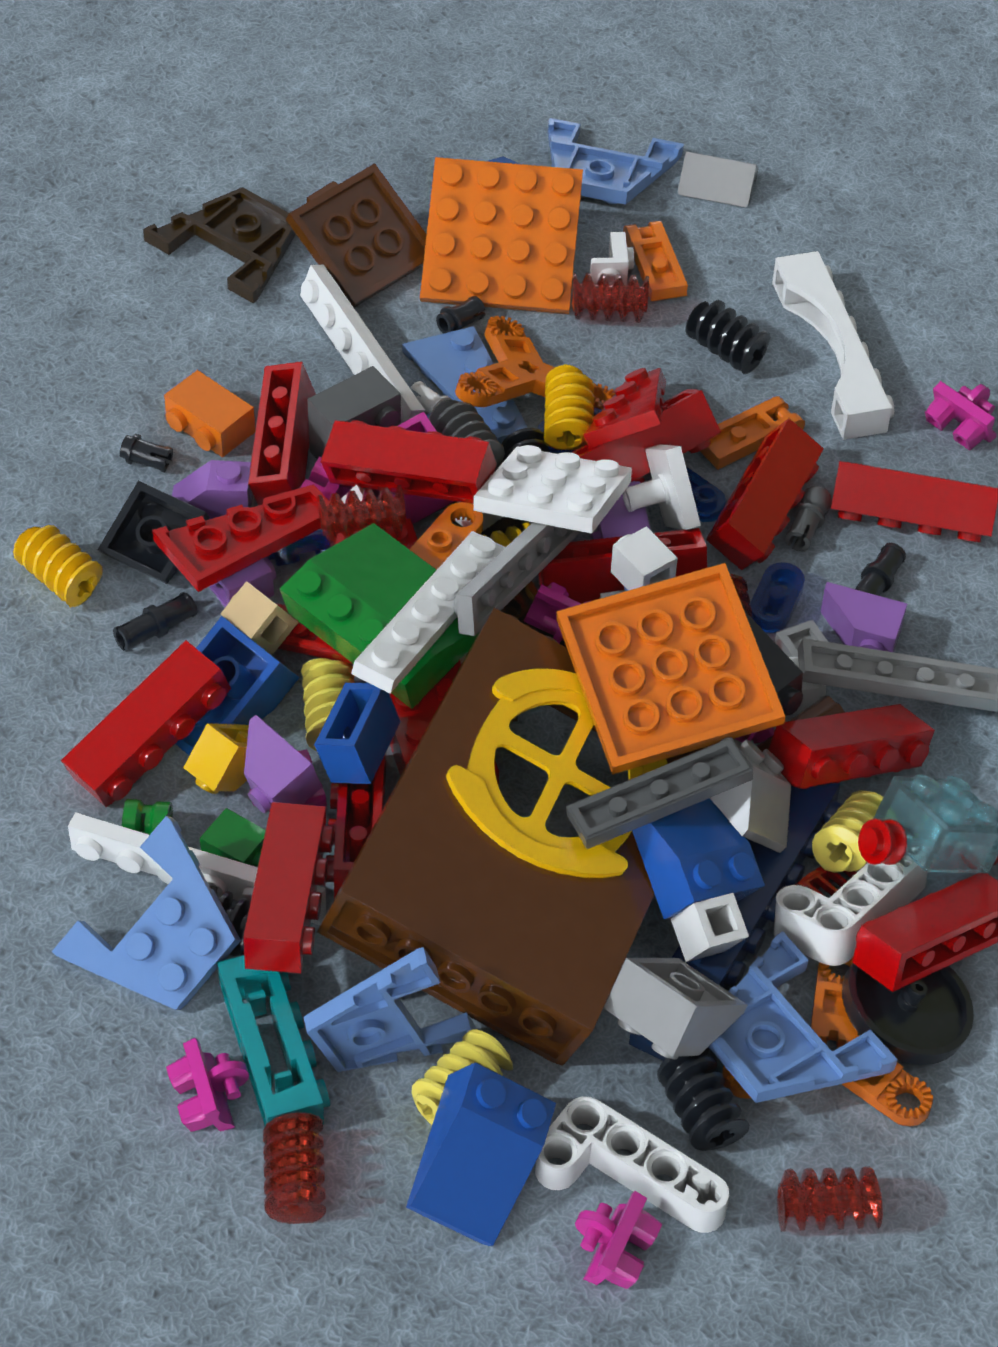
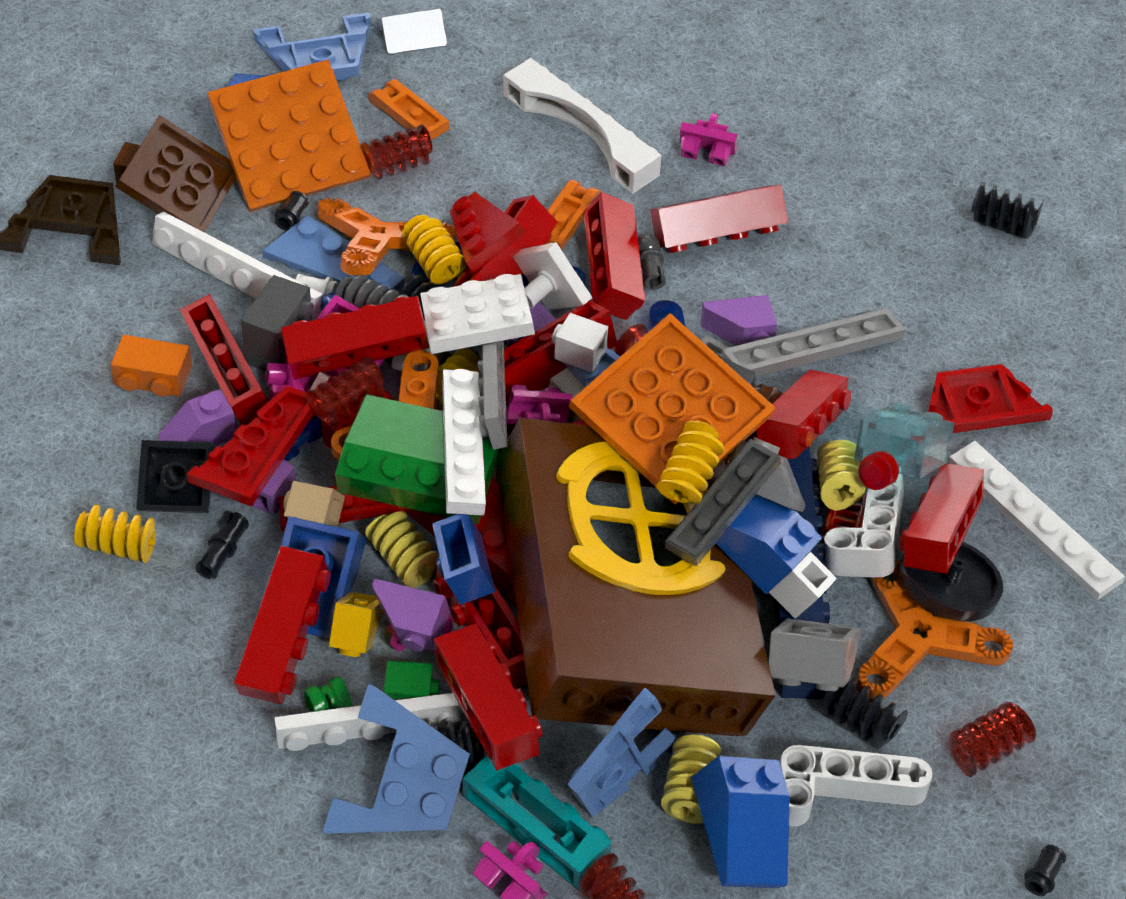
camera: 30 degrees left, 0 degrees up
(144, 452) = (118, 417): black pin -> none
(619, 261) = (382, 120): white bracket -> none
(627, 1224) = (867, 837): dark pink hips -> none
(640, 732) = (691, 463): none -> yellow piece
(728, 335) = (504, 148): black piece -> none
(775, 1049) = (890, 650): medium blue wing -> none
(879, 575) = (727, 283): black pin -> none

